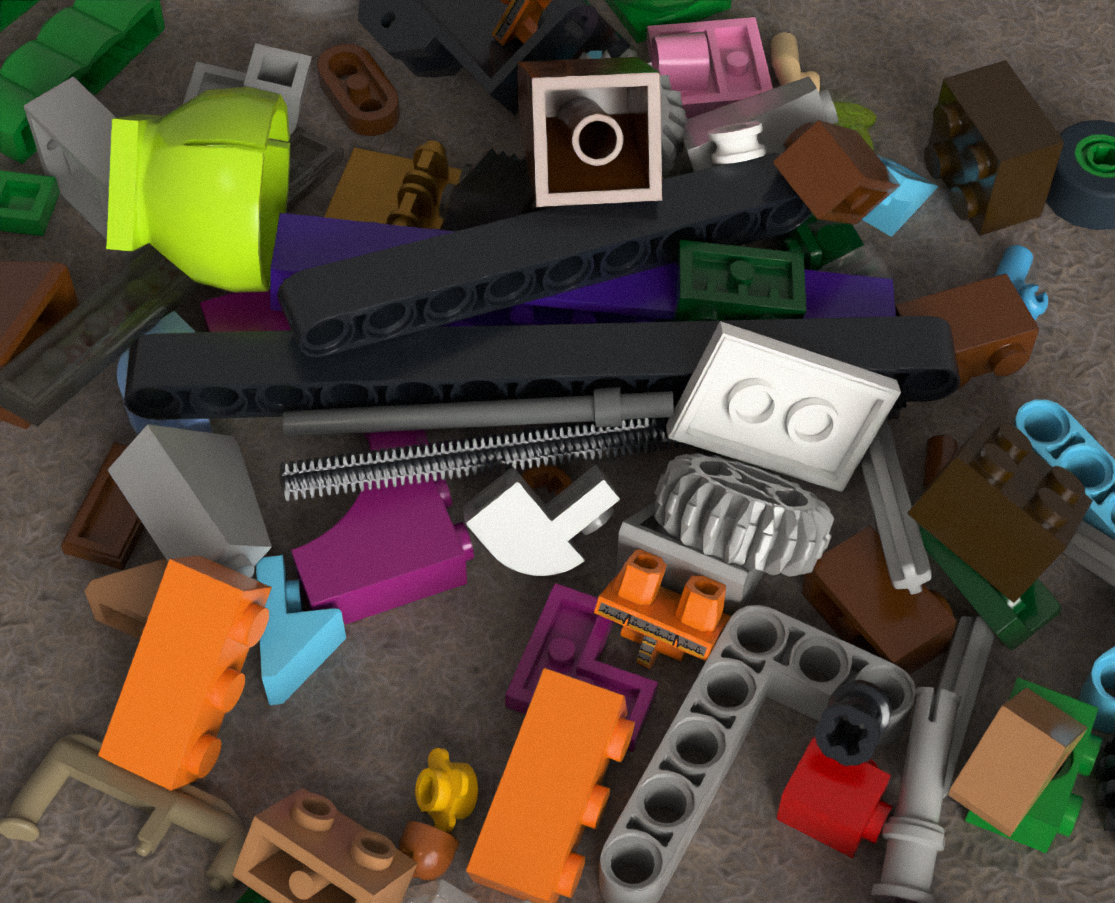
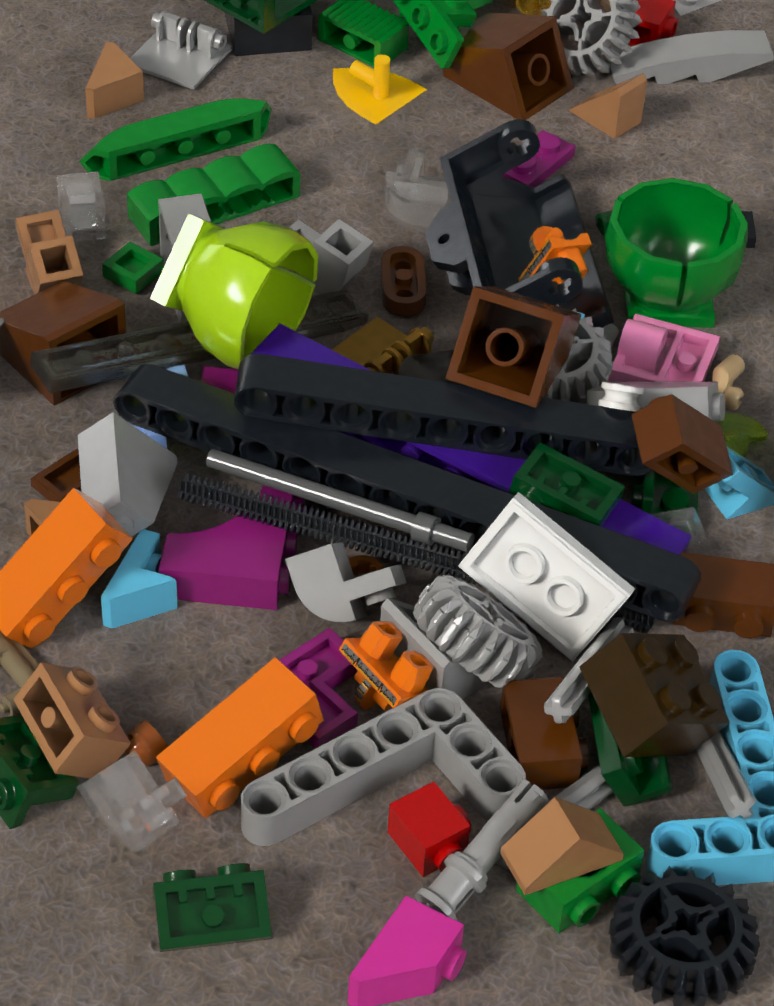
camera: 25 degrees right, 10 degrees down
(446, 790) = (178, 714): yellow plate -> none
(847, 741) = (462, 771): black bush -> none

